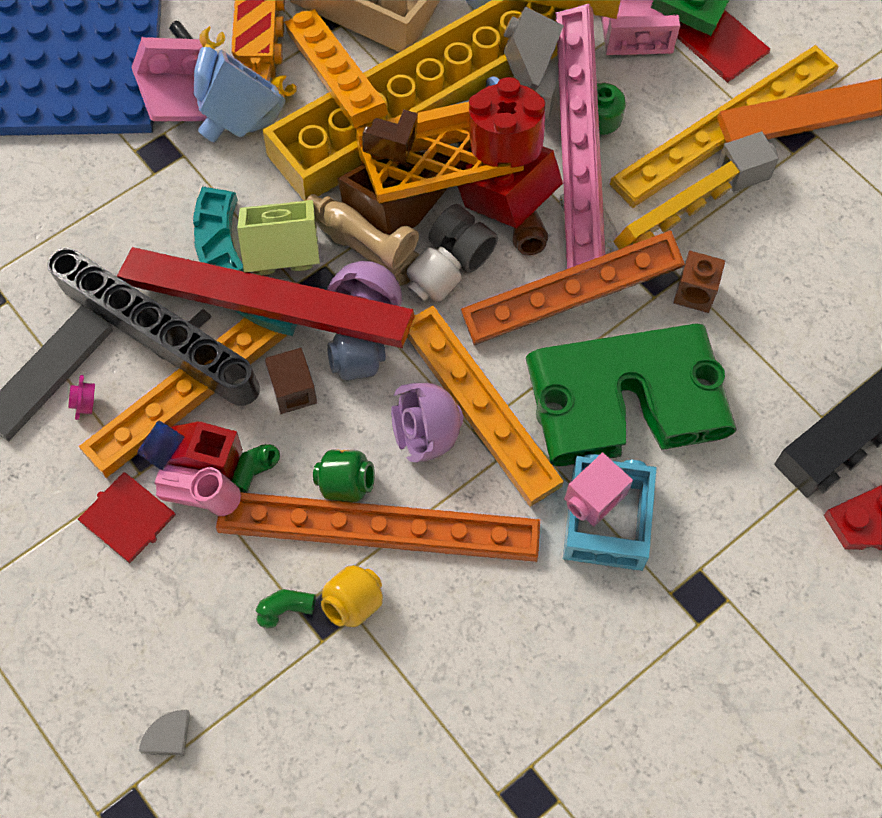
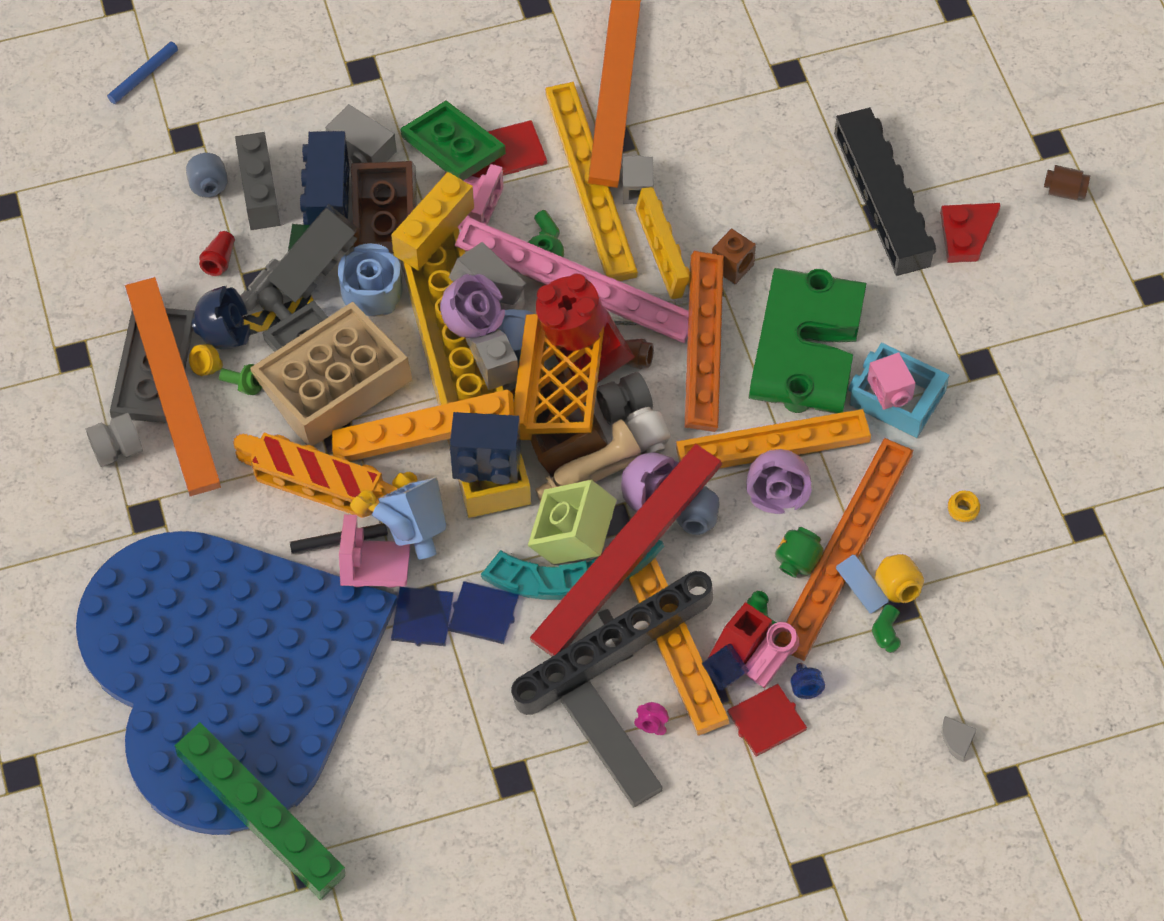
camera: 65 degrees left, 5 degrees down
(140, 157) = (422, 616): none -> clear blue piece
(163, 207) = (483, 612): none -> clear blue piece
(178, 541) = (807, 682): none -> clear blue tile
(291, 380) = (702, 557): reddish brown panel -> none
(307, 109) = (485, 447): none -> dark blue brick
(335, 555) = (862, 583): none -> light blue sticker
(391, 139) = (543, 397): reddish brown panel -> none
(435, 85) = (494, 358): none -> light grey slope
(478, 42) = (472, 306): none -> lavender cylinder
(491, 629) = (966, 499): none -> yellow plate
(645, 107) = (546, 224): none -> green arm

